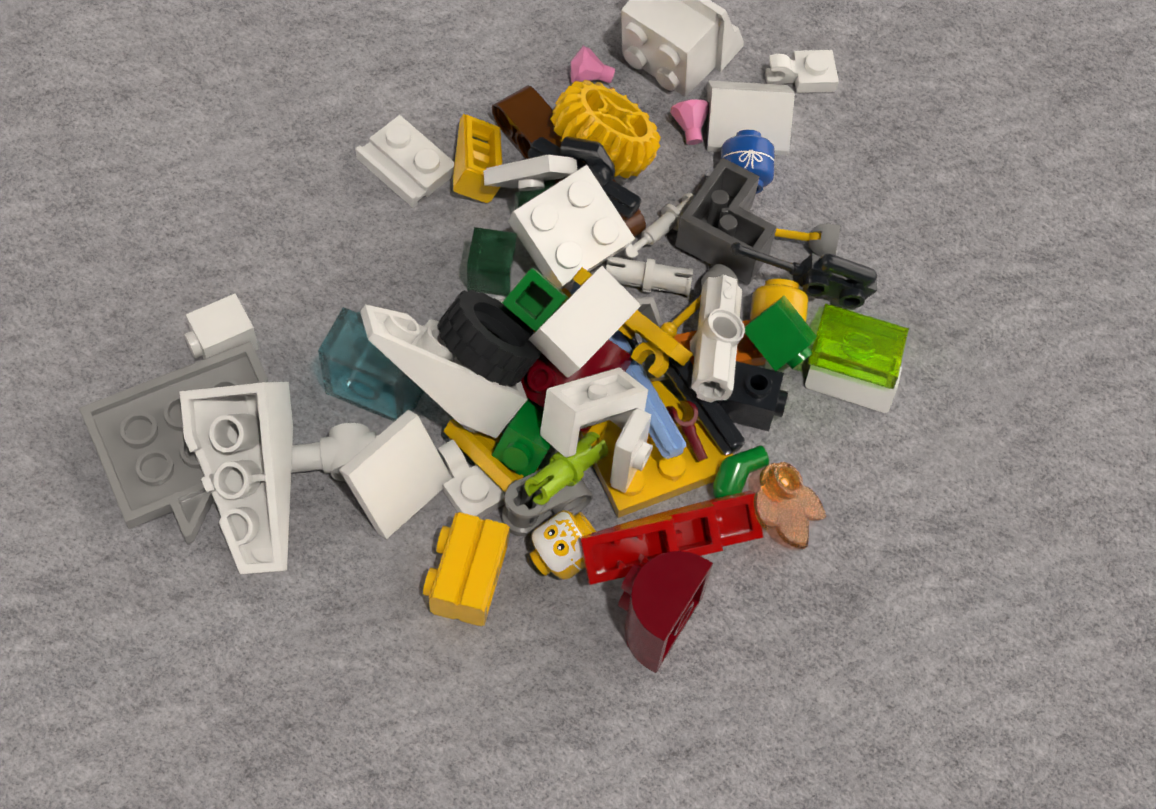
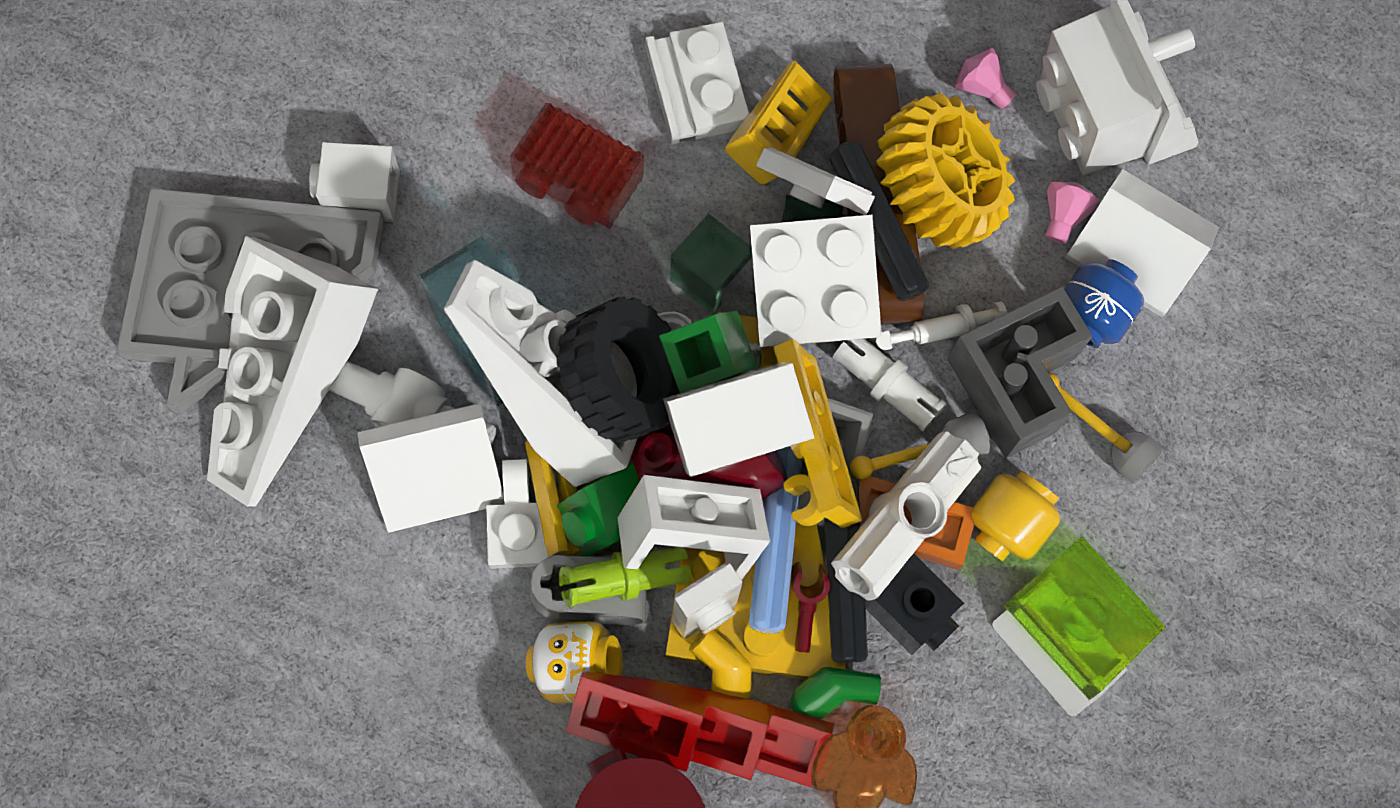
camera: 30 degrees right, 10 degrees up
(363, 248) = (576, 167): none -> clear red brick
(468, 568) = (448, 624): yellow brick -> none
(592, 154) = (899, 205): black arm -> none
(665, 491) = (729, 667): none -> yellow arm
(781, 335) = (989, 554): green brick -> none
(807, 69) = (1257, 221): white plate -> none
(824, 275) = (1093, 505): black piece -> none

